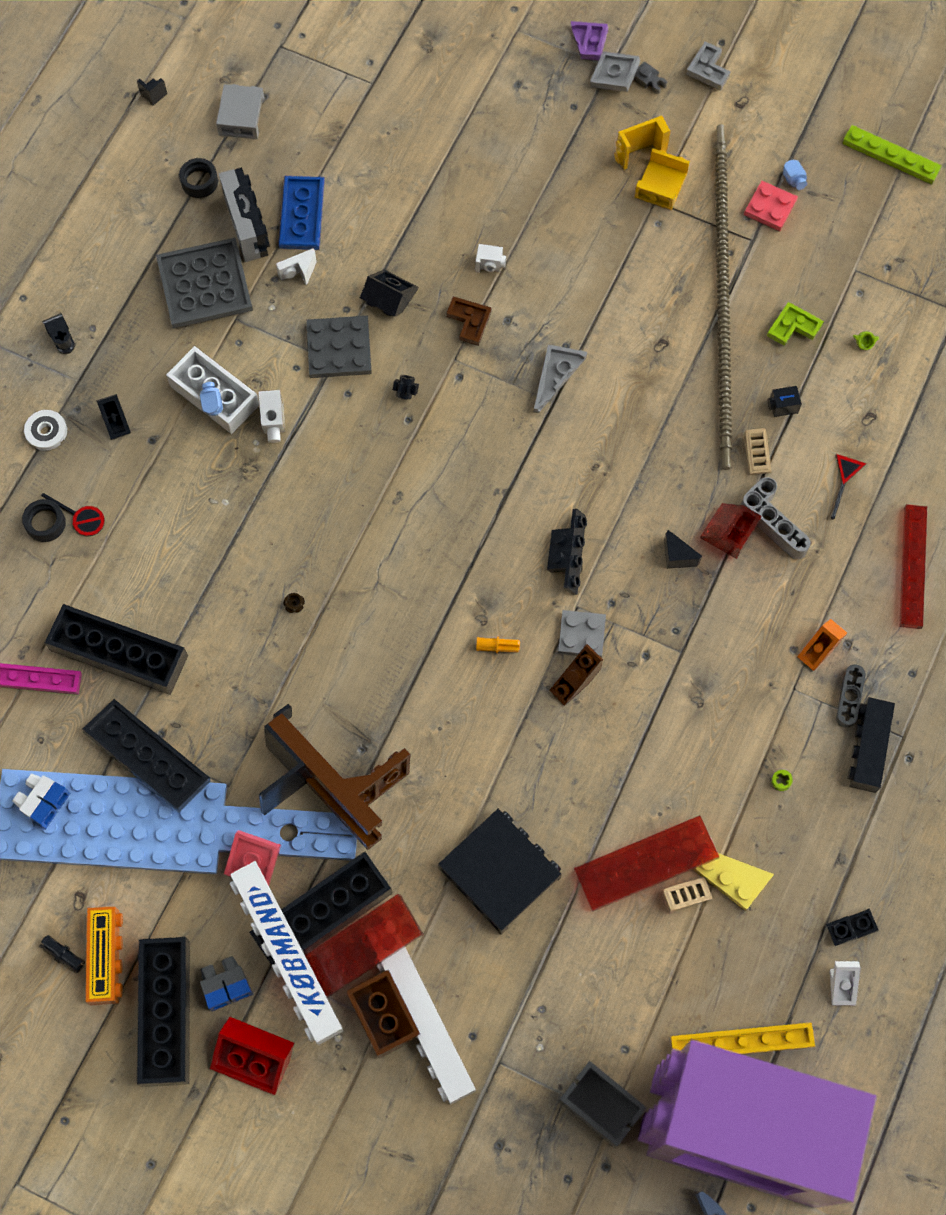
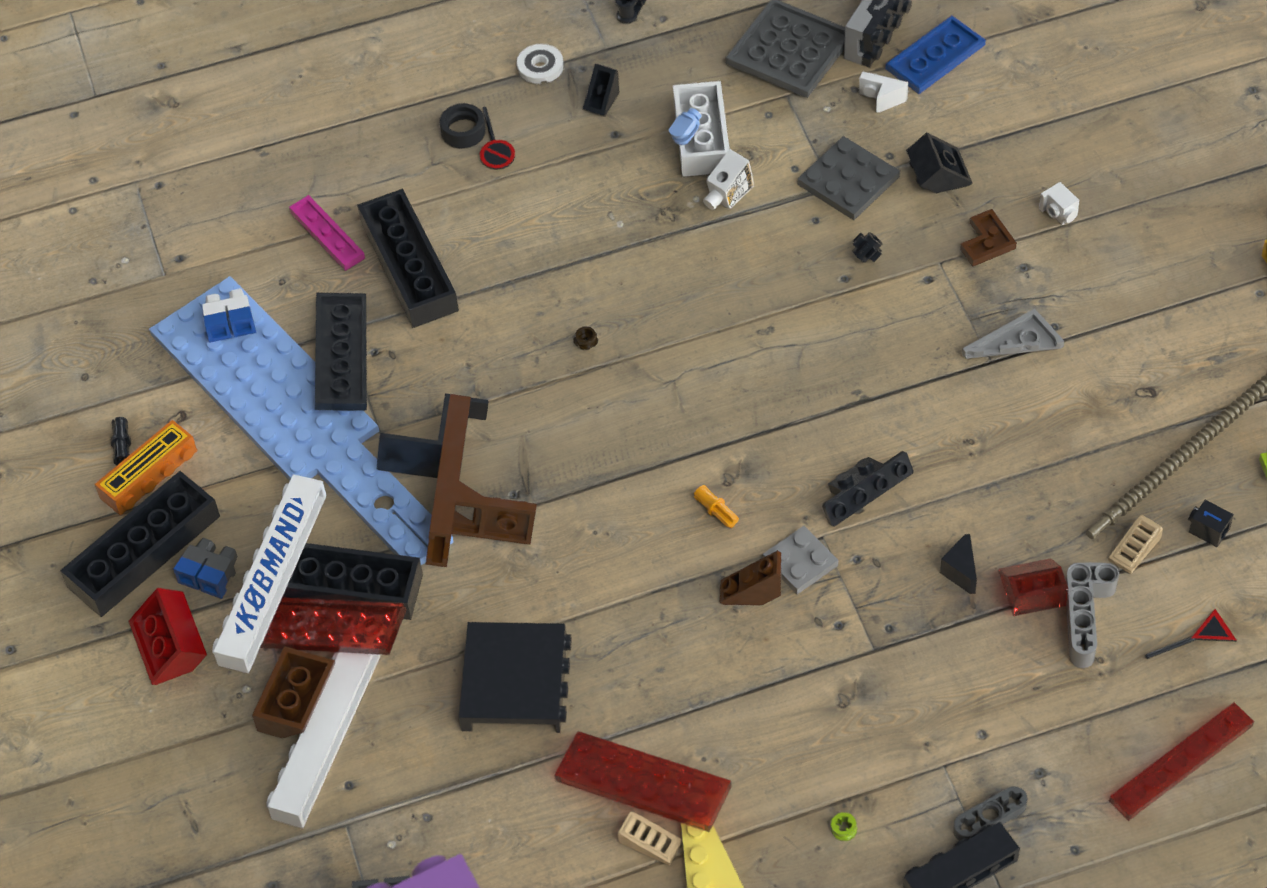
camera: 50 degrees right, 15 degrees down
(250, 848) = (340, 492): coral plate -> none
(822, 644) = (1011, 746): orange slope -> none

